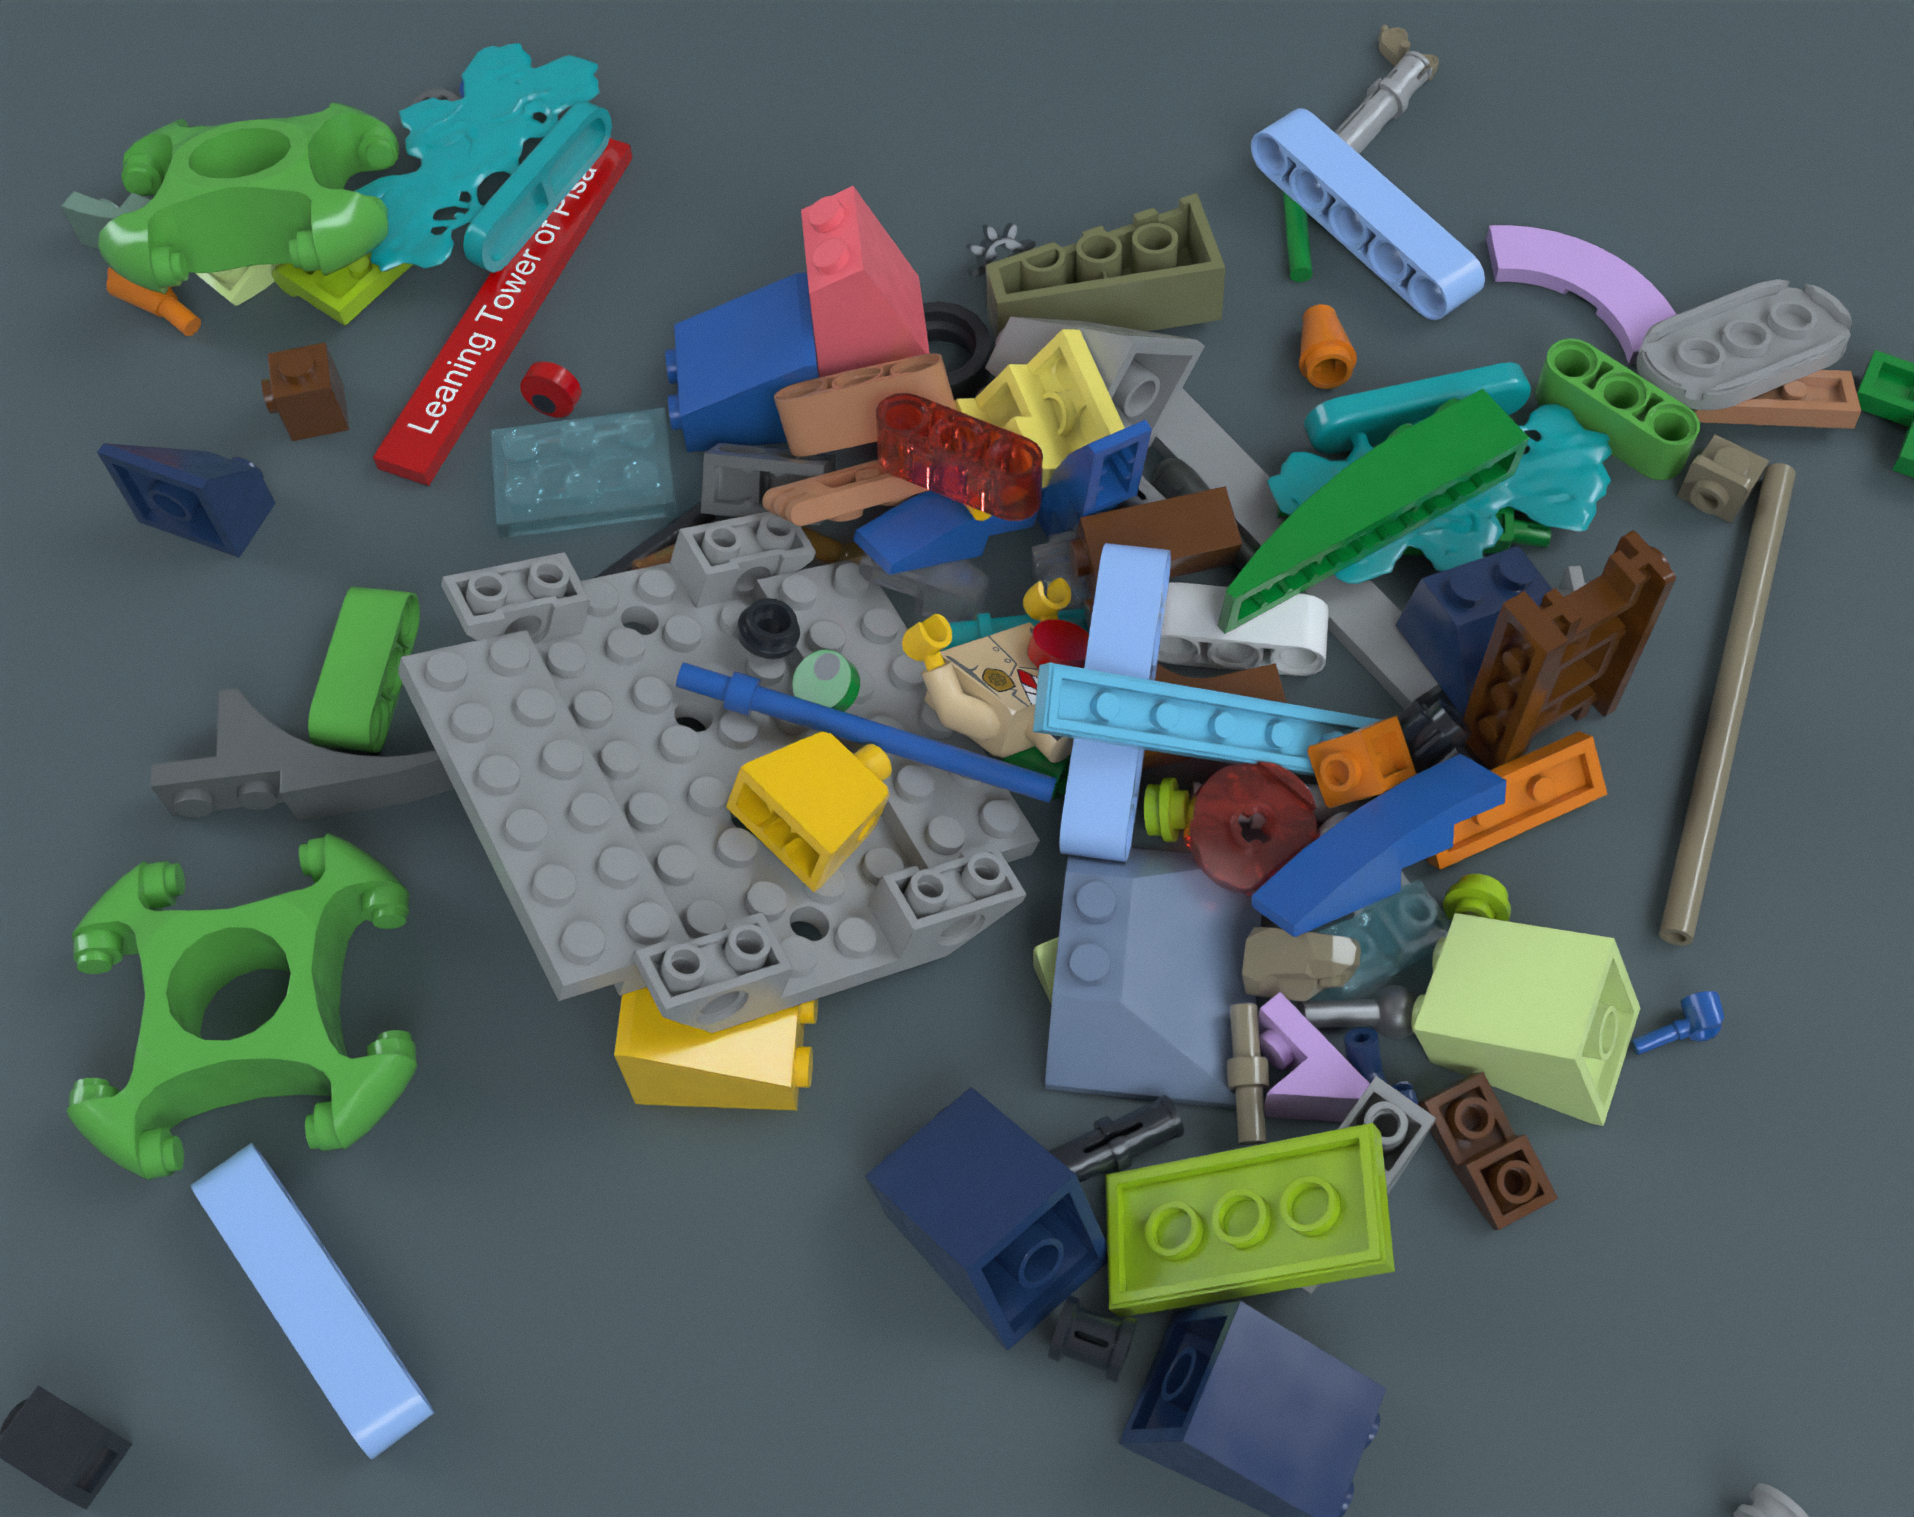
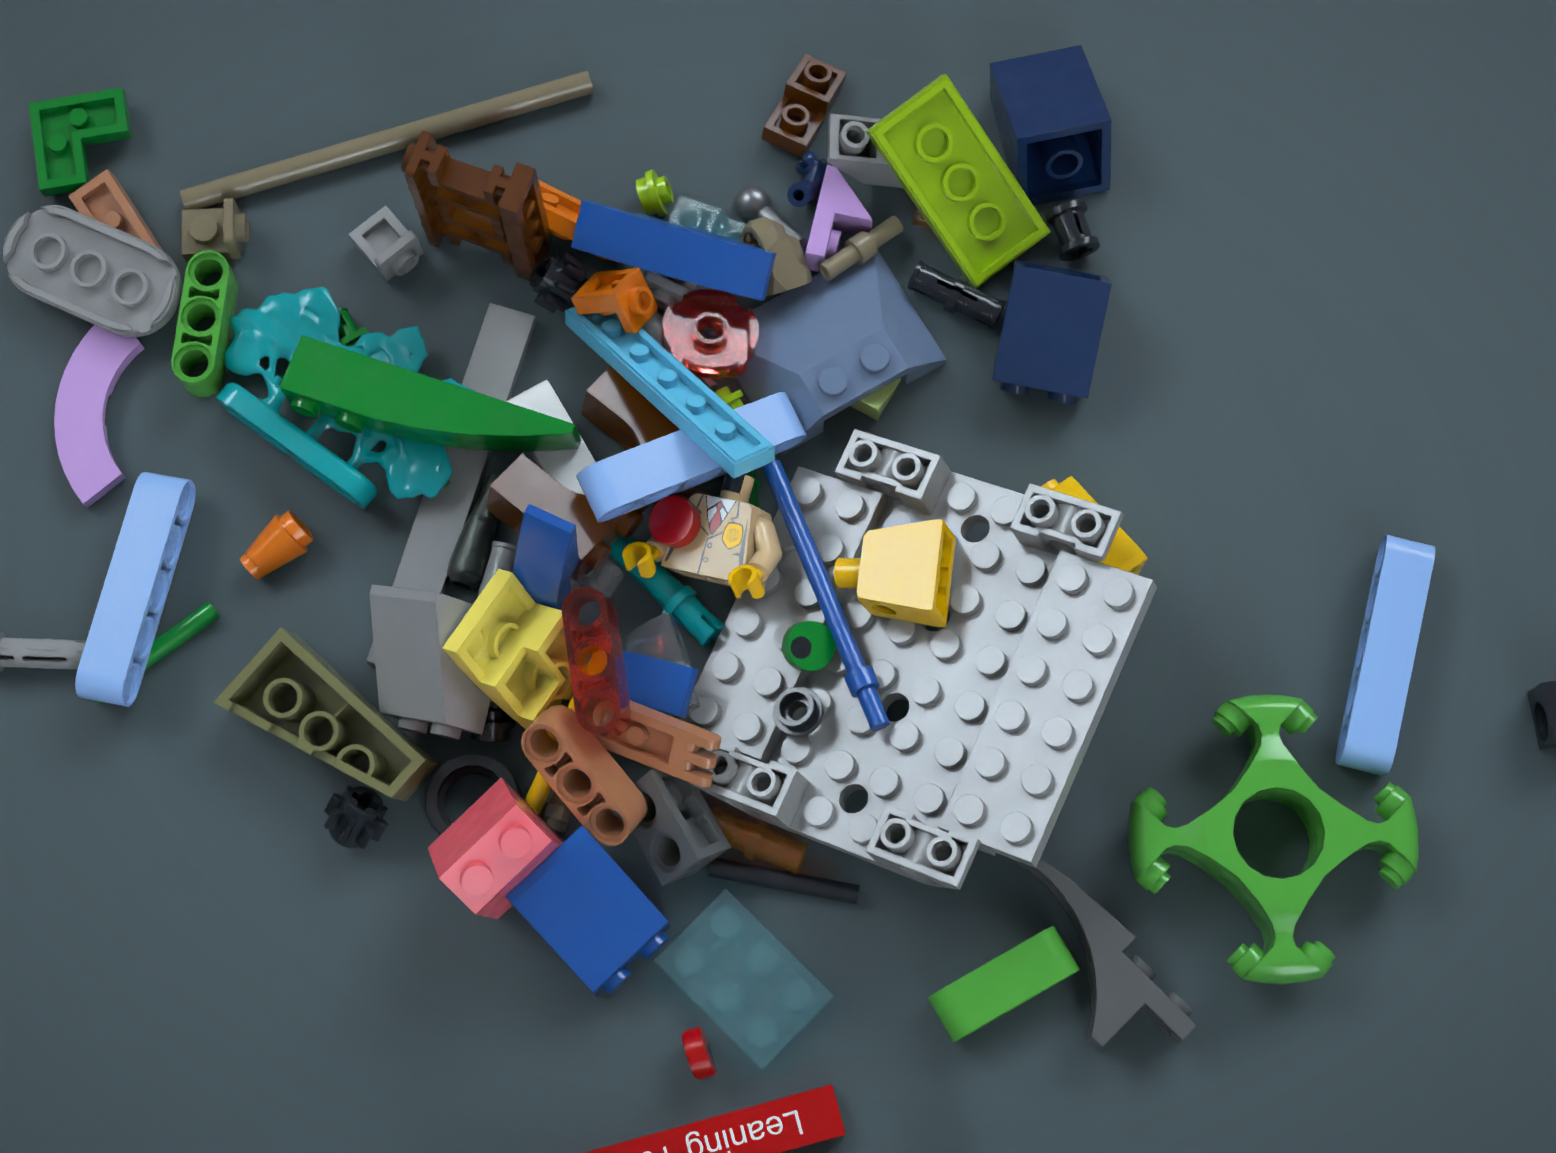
camera: 130 degrees left, 15 degrees up
(1456, 613) = (456, 296): dark blue slope -> none
(1531, 1011) = (711, 127): yellowish green slope -> none
(1701, 1022) = (636, 38): blue hand -> none

